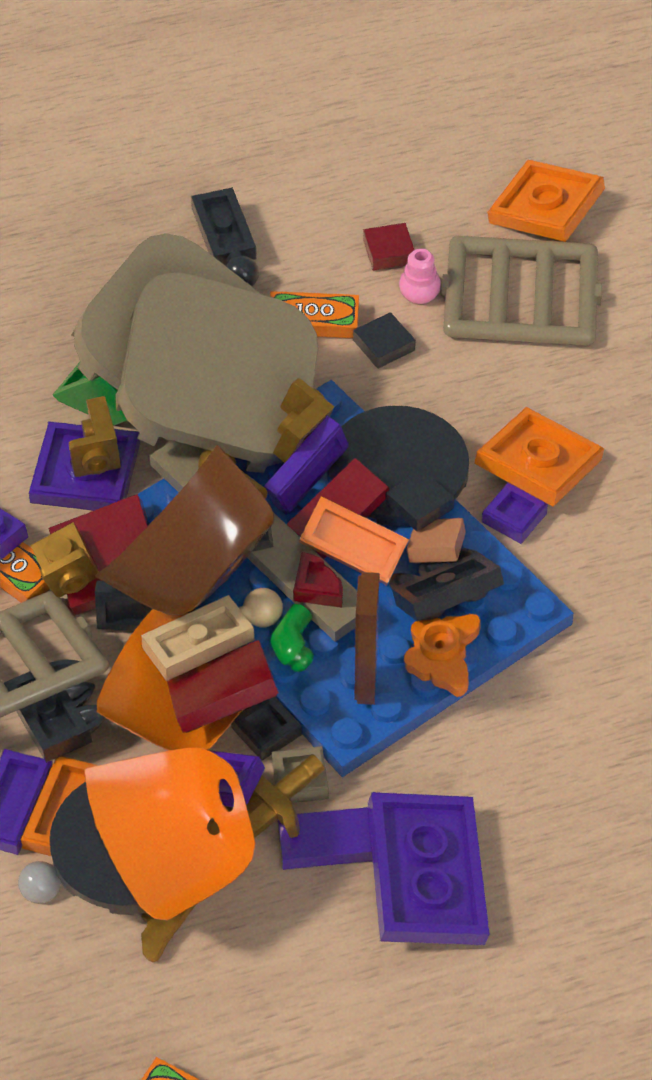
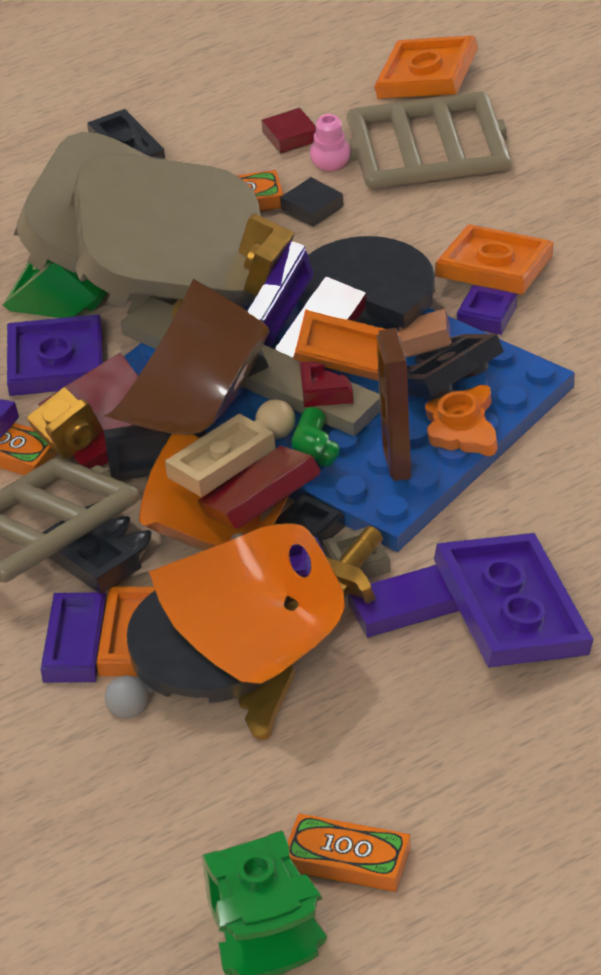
camera: 10 degrees left, 10 degrees down
(99, 447) = (65, 322): pearl gold bracket -> none

